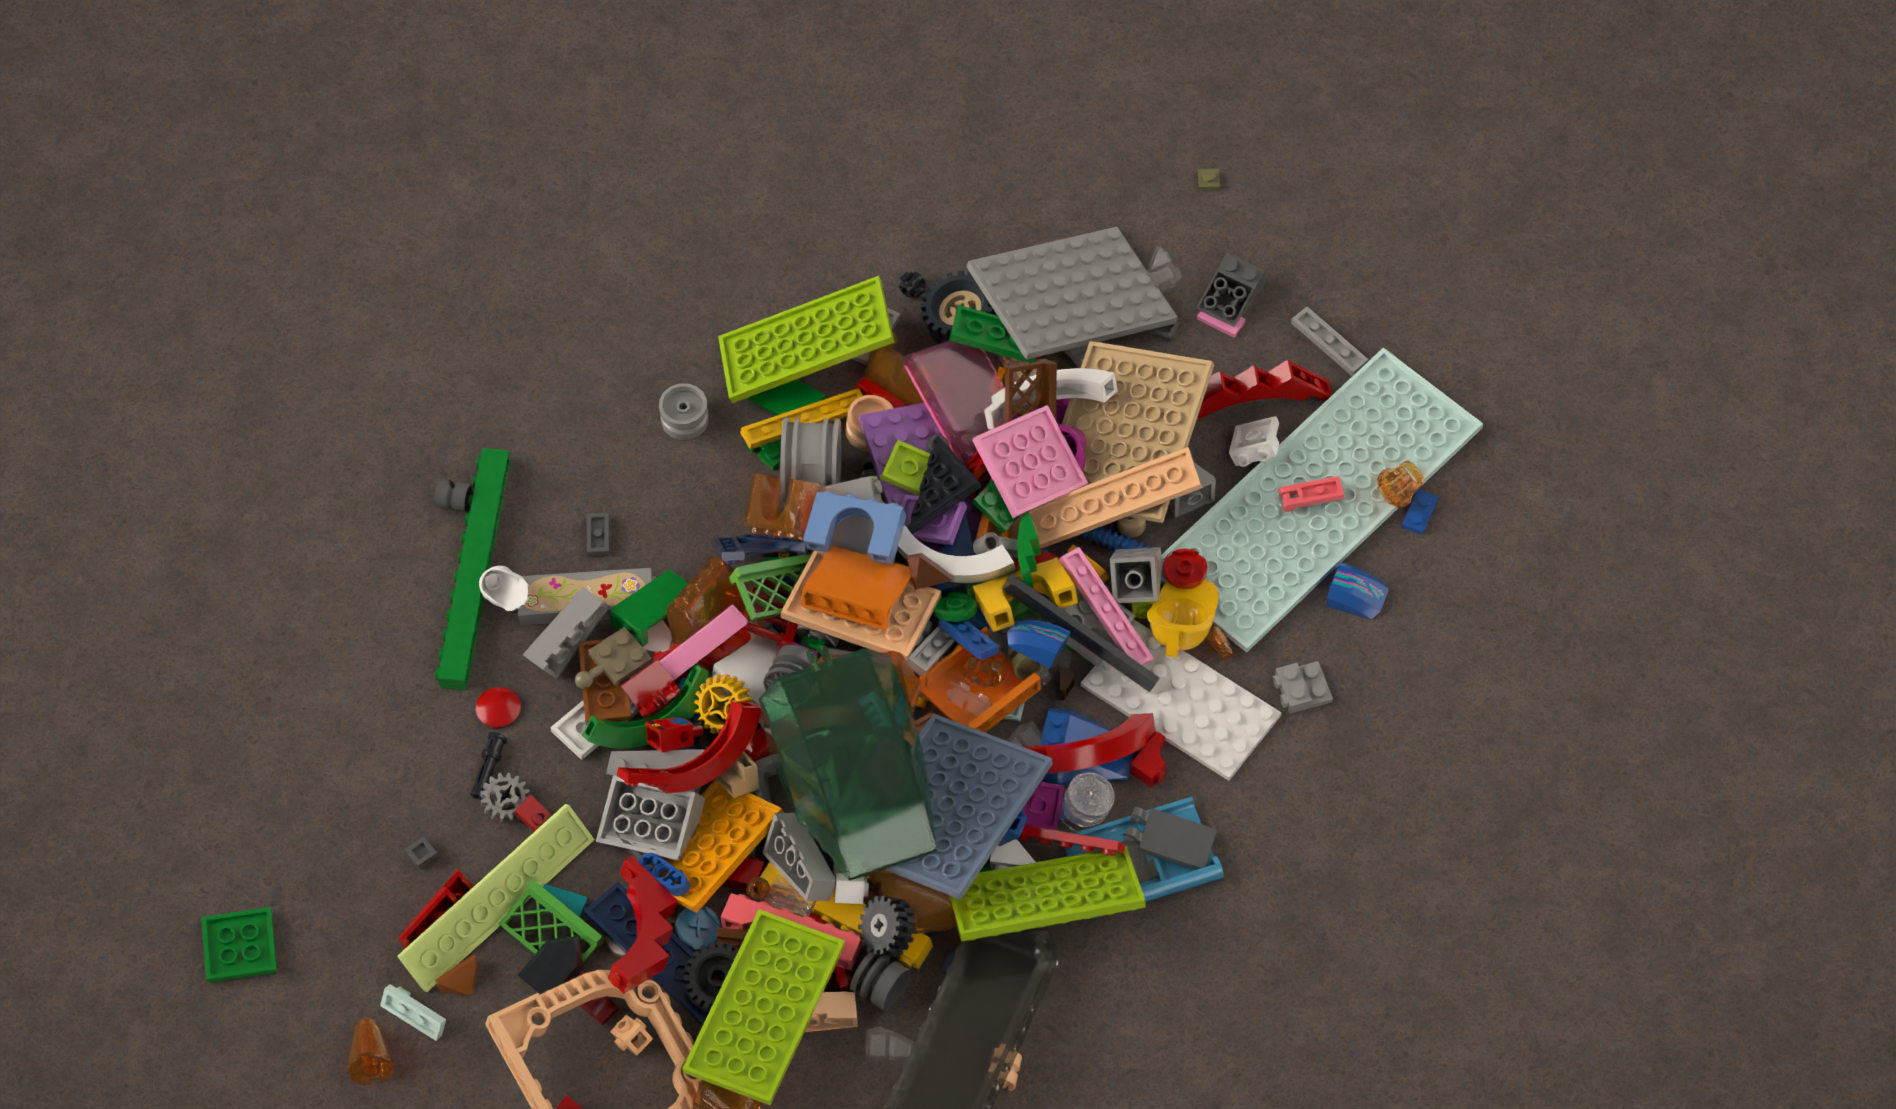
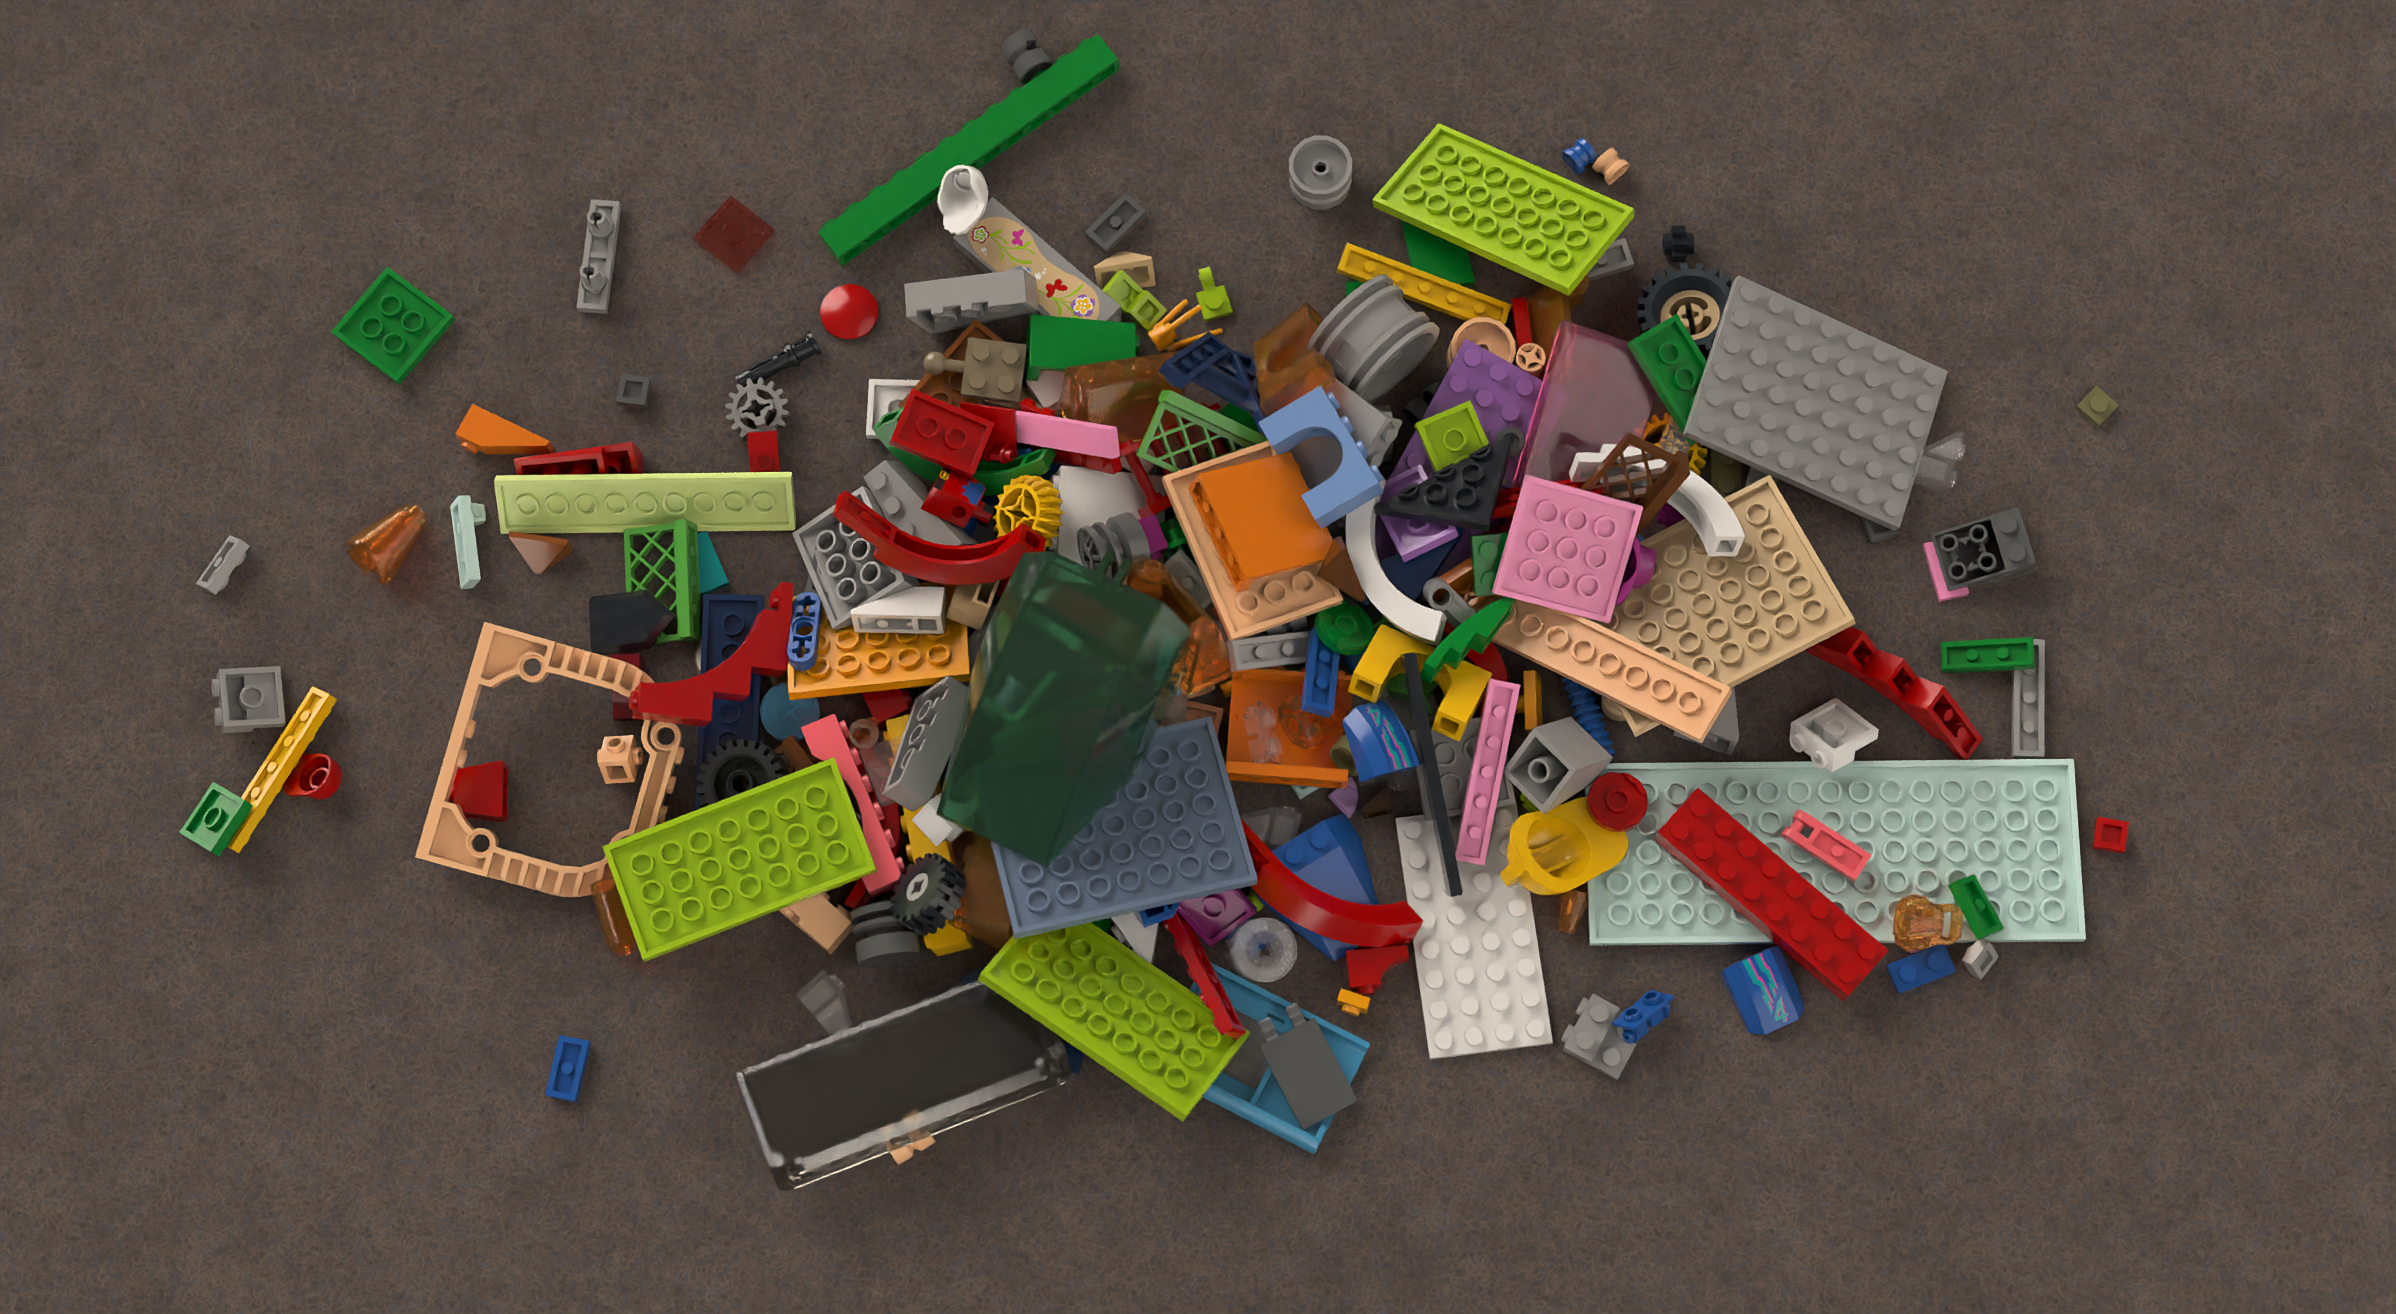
camera: 50 degrees right, 15 degrees up
(321, 804) = (598, 256): none -> light grey plate
(366, 944) = (495, 435): none -> orange slope
(386, 727) = (734, 234): none -> clear red tile
(630, 706) = (941, 433): none -> red plate
(631, 552) = (1135, 265): none -> tan slope
(658, 561) = (1134, 302): none -> lime slope
(689, 564) = (1164, 333): none -> light orange plant
(693, 526) = (1212, 299): none -> lime plate
(710, 813) = (909, 611): none -> white slope
(812, 287) = (1579, 156): none -> blue wheel
(834, 278) = (1610, 166): none -> light nougat wheel
(901, 395) = (1532, 354): none -> light nougat wheel
(1044, 699) = (1346, 799): none -> lavender tile
(1160, 787) = (1352, 1002): none -> light orange plate
(1288, 338) = (1987, 655): none -> green tile
(1310, 539) = (1770, 894): none -> red brick
(1312, 655) = (1650, 1008): none -> blue hinge
(1407, 452) = (1975, 907): none -> green plate
(1440, 367) = (2110, 835): none -> red plate
(1442, 479) = (1980, 958): none -> light grey plate

